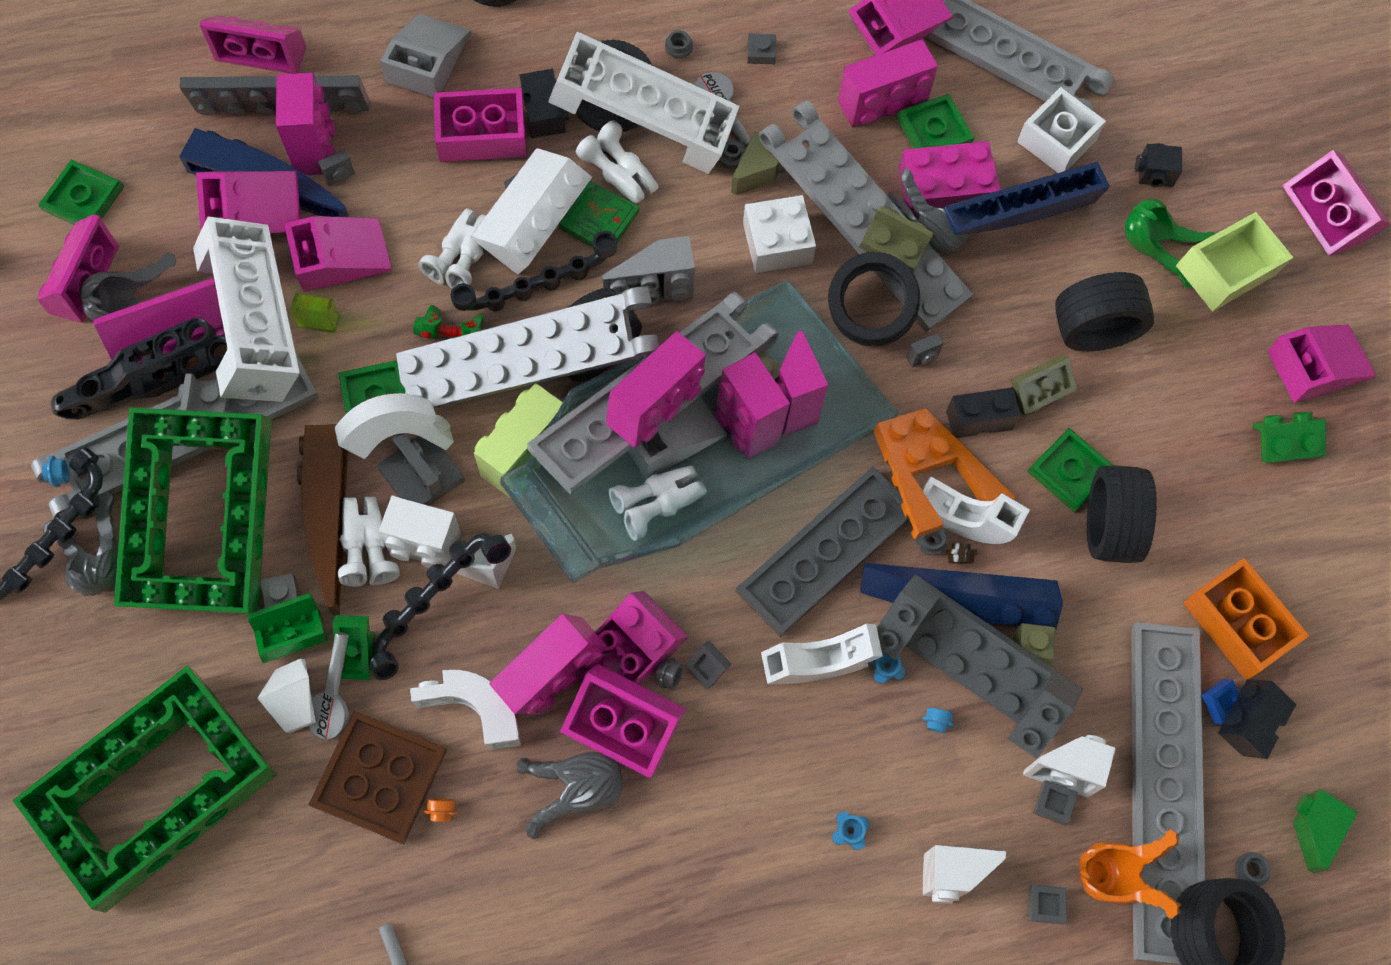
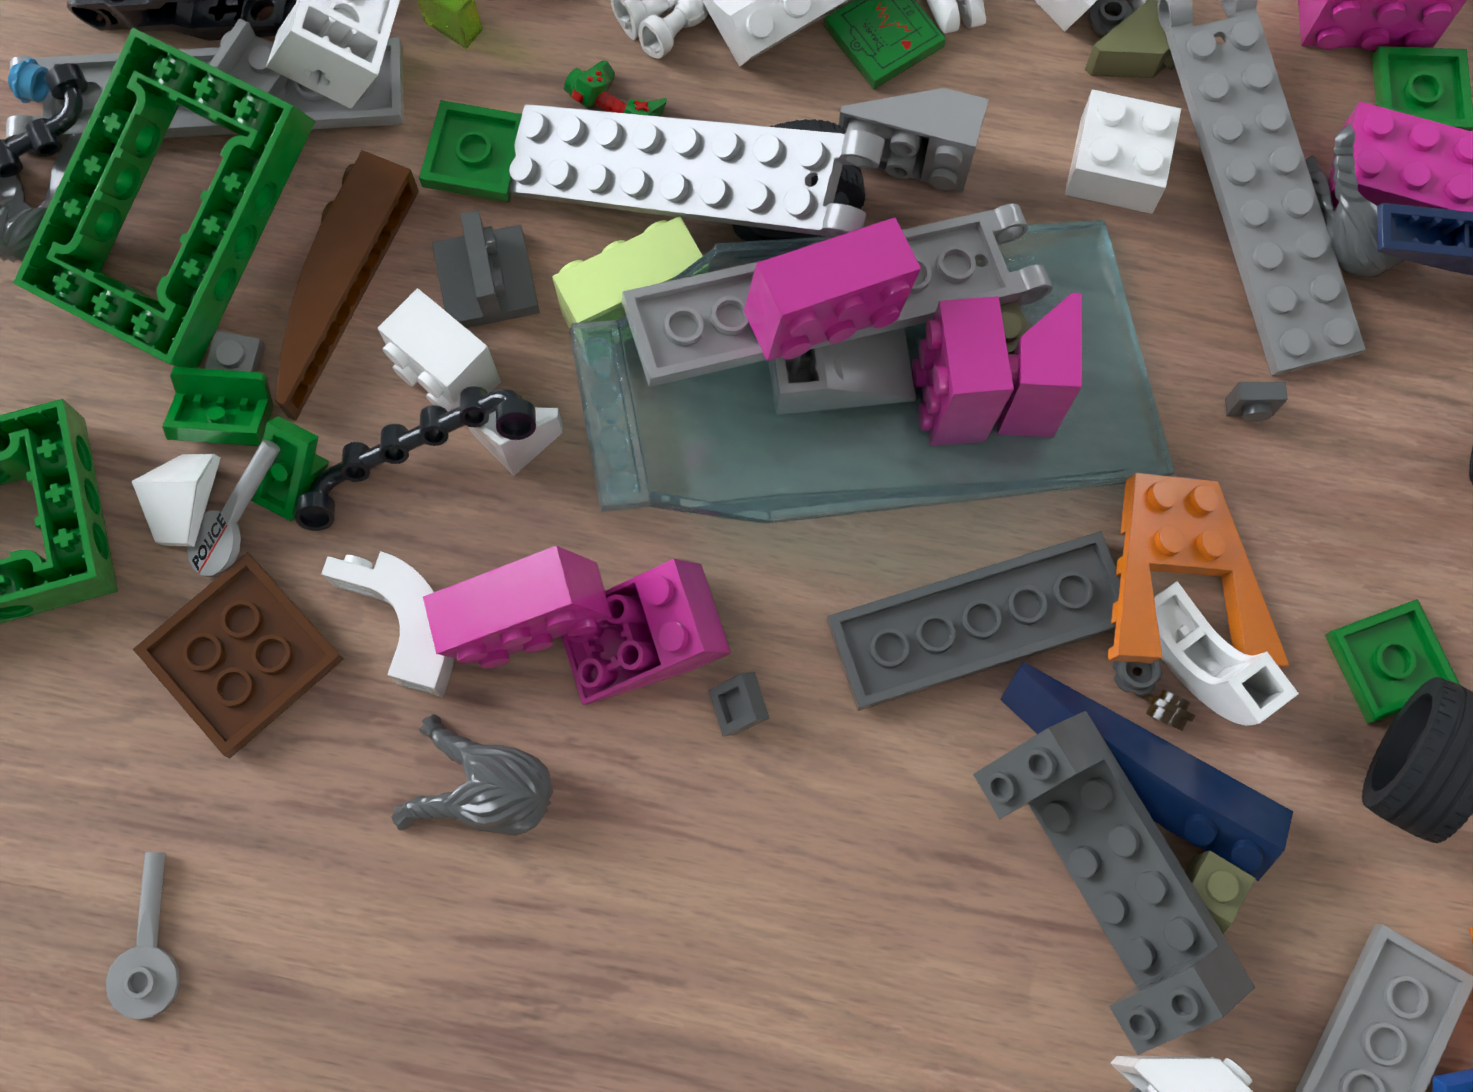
camera: 30 degrees right, 5 degrees up
(360, 532) = (353, 328): white piece -> none
(391, 415) = (473, 182): white arch -> none
(440, 809) = (296, 734): orange plate -> none
(465, 299) = (868, 72): black bar -> none
(622, 720) = (583, 727): dark pink brick -> none
(668, 500) = (792, 449): white piece -> none
(669, 673) = (681, 692): dark grey plate -> none
(822, 659) = (898, 767): white arch -> none
(846, 821) = (841, 1021): dark azure plate -> none
(874, 262) = (1215, 239): black tyre -> none
(883, 674) = (976, 827): dark azure plate -> none
(896, 236) = (1288, 223): olive bracket -> none
(938, 720) = (1024, 929): dark azure plate -> none
(983, 412) = (1299, 523): black brick -> none
(1044, 384) = (1407, 522): olive bracket -> none

